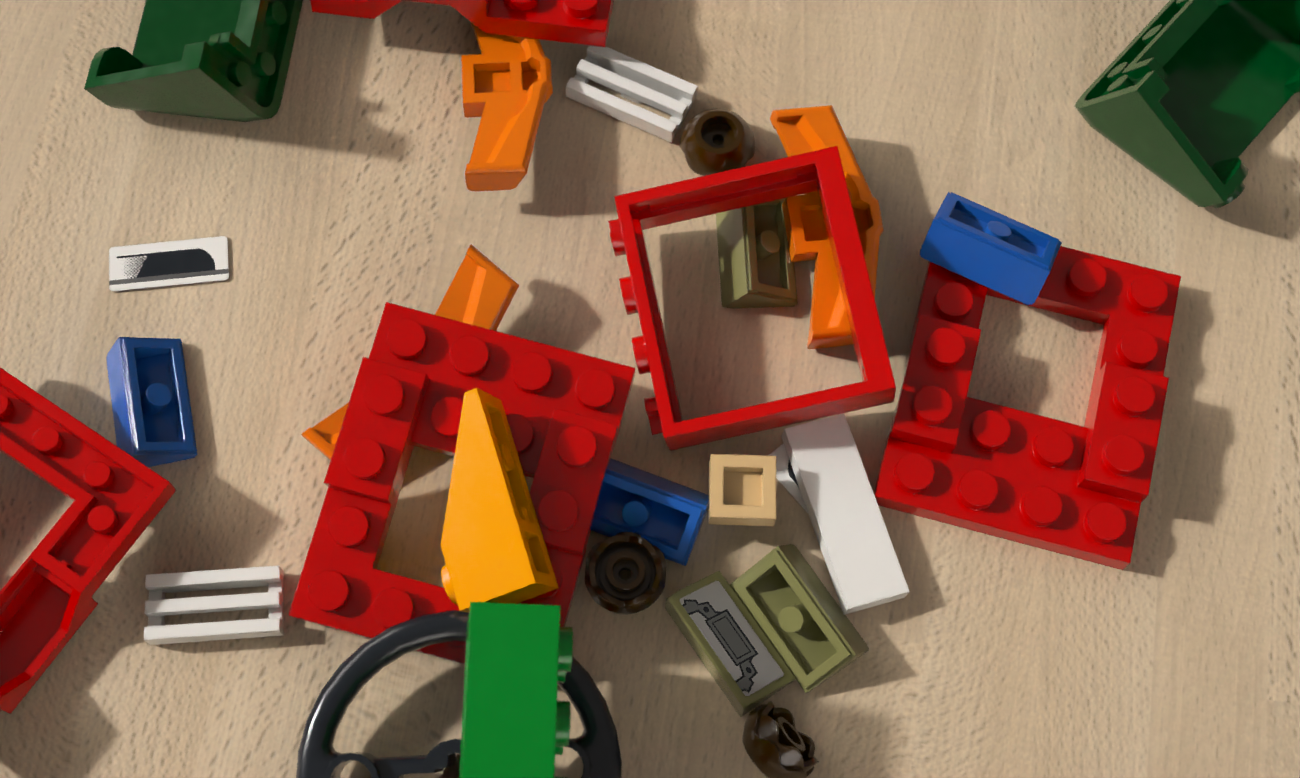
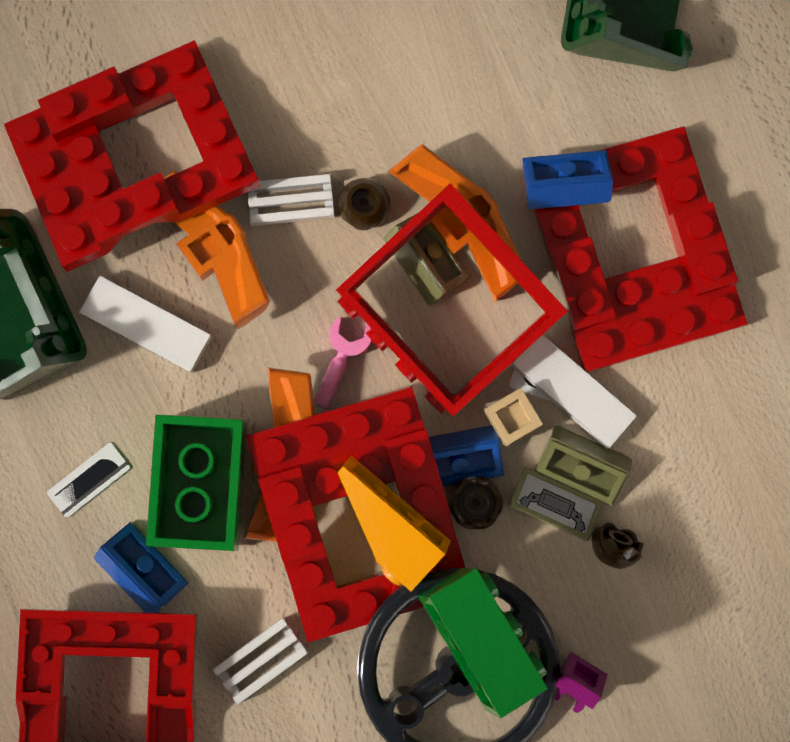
camera: 30 degrees left, 15 degrees up
(287, 330) = (196, 483): none -> green brick
(364, 129) = (145, 324): none -> white tile
(583, 293) = (338, 364): none -> bright pink piece

